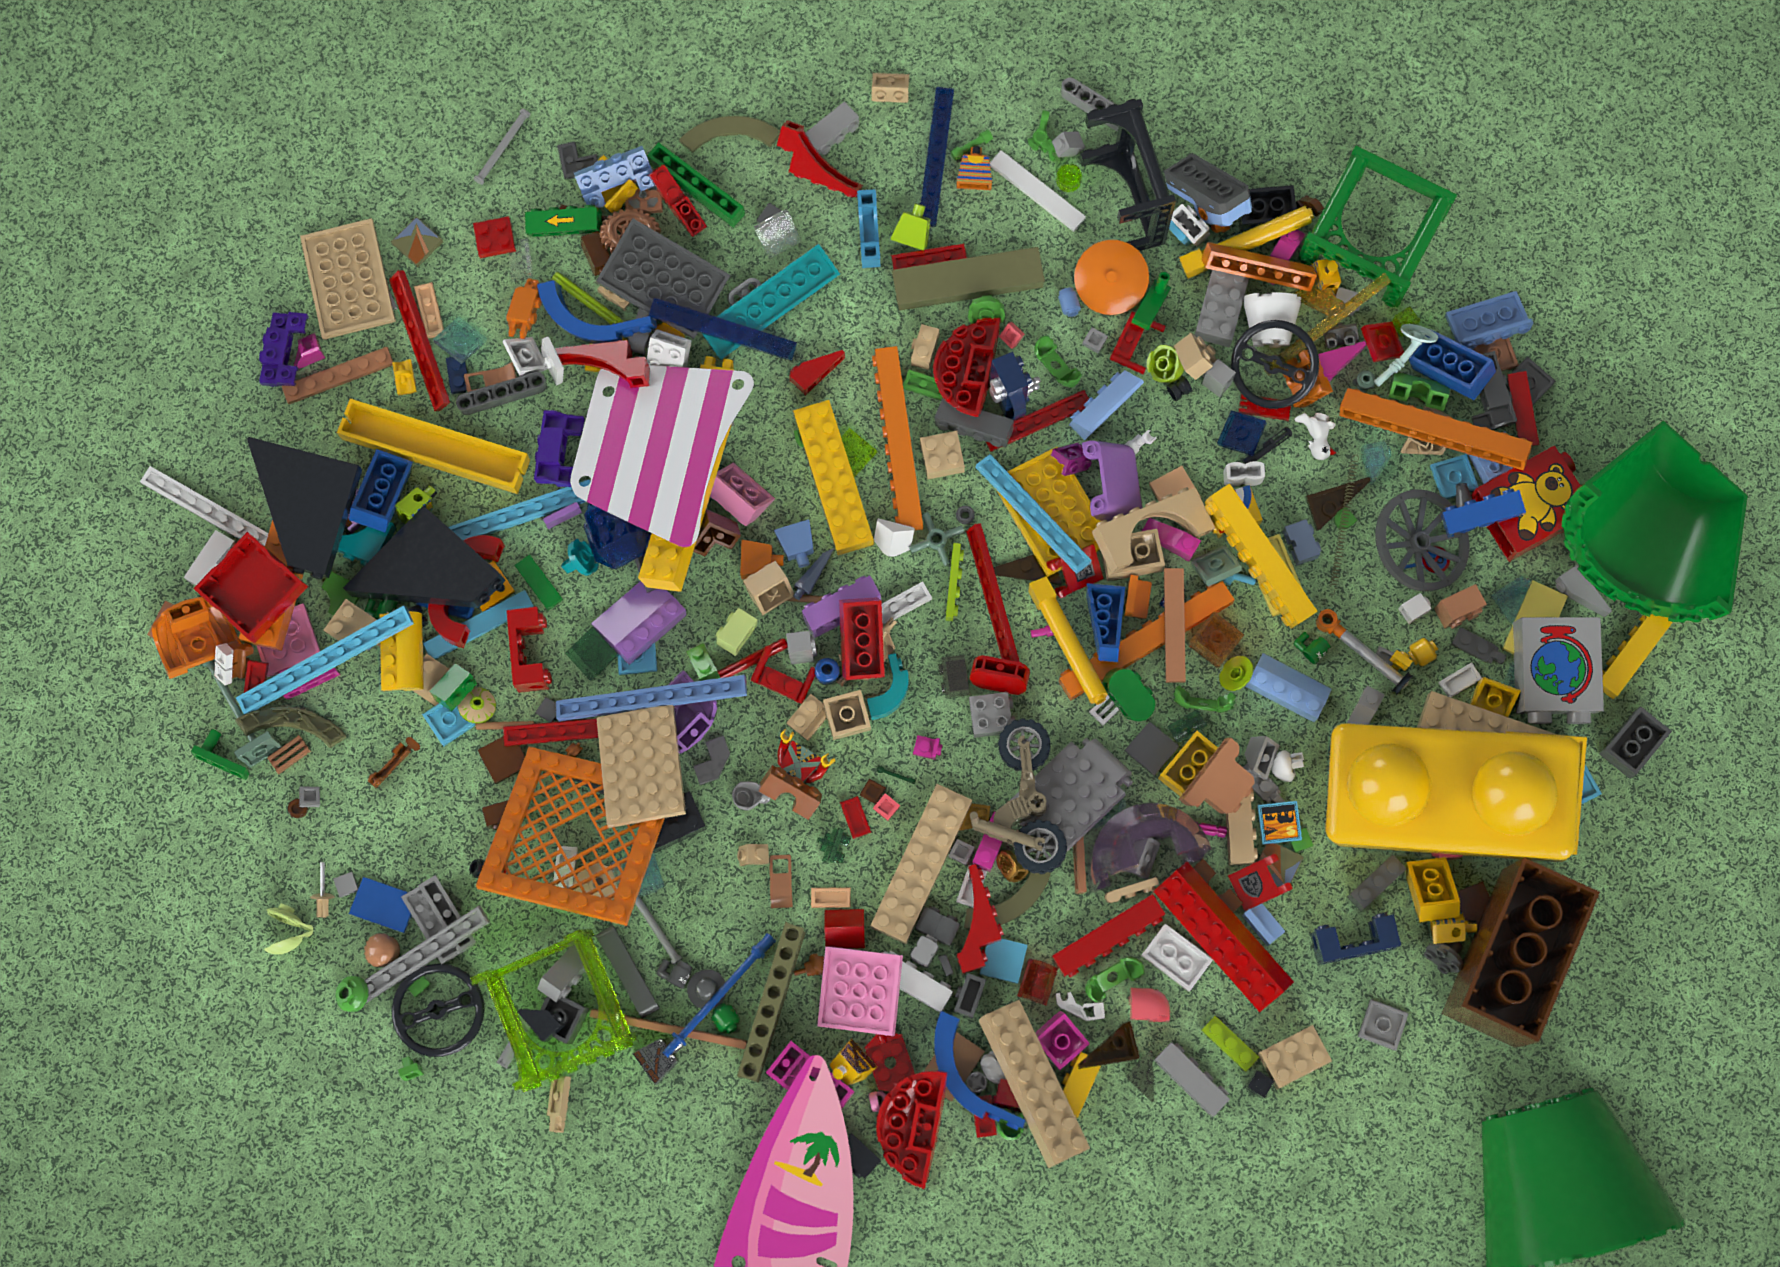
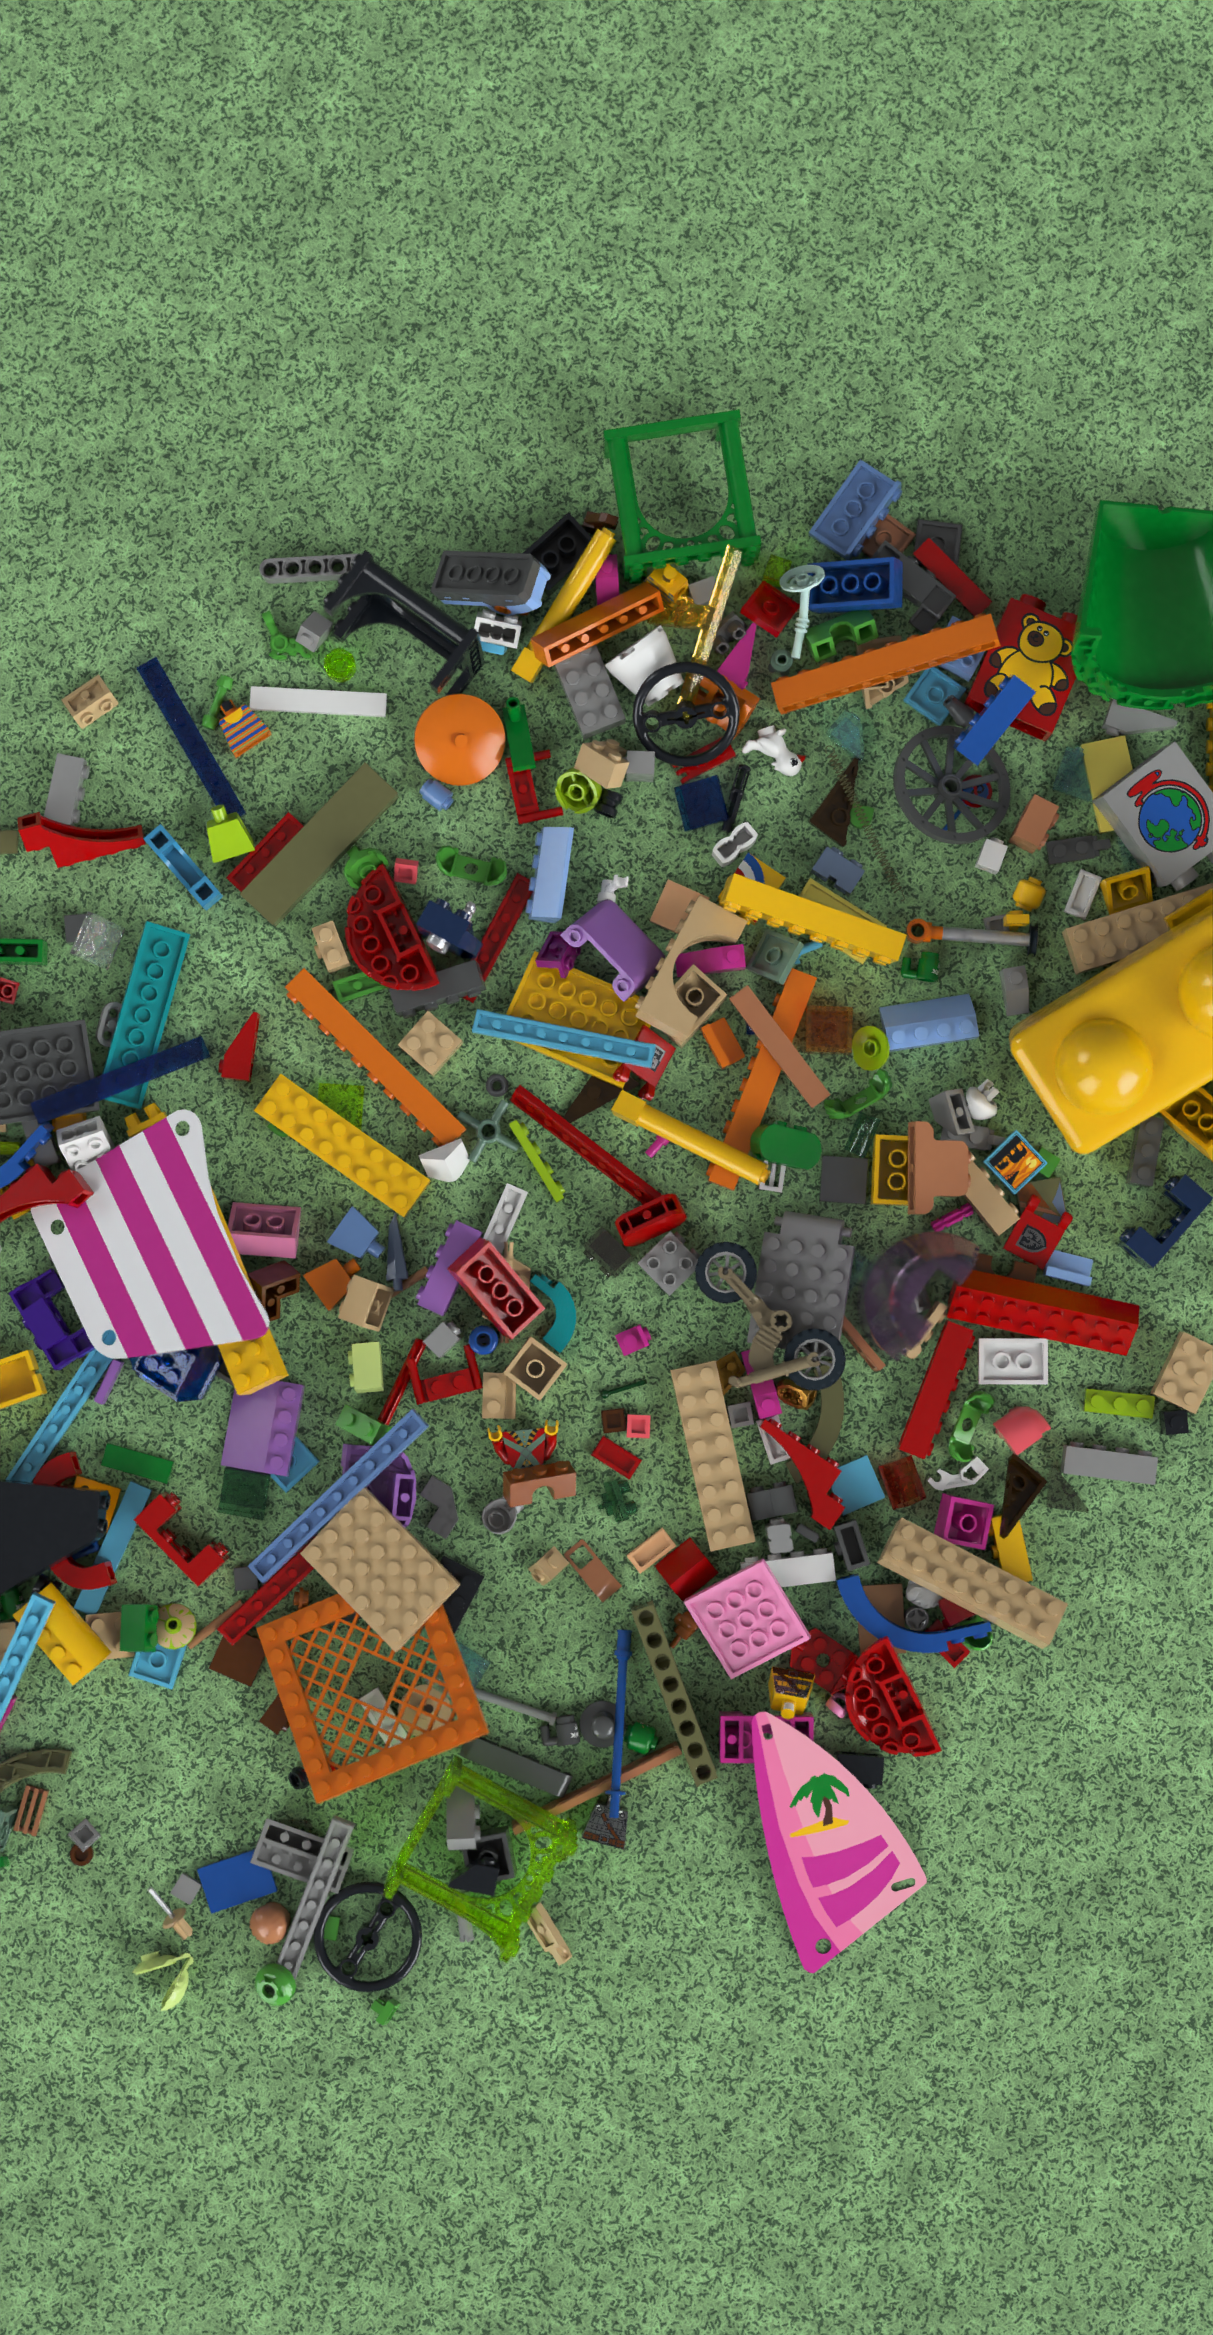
camera: 45 degrees left, 10 degrees up
(401, 753) = (137, 1728): dark orange piece -> none
(580, 558) = (161, 1411): teal tile -> none
(1095, 340) = (490, 815): light grey plate -> none
(1106, 616) = (708, 1086): blue wedge -> none

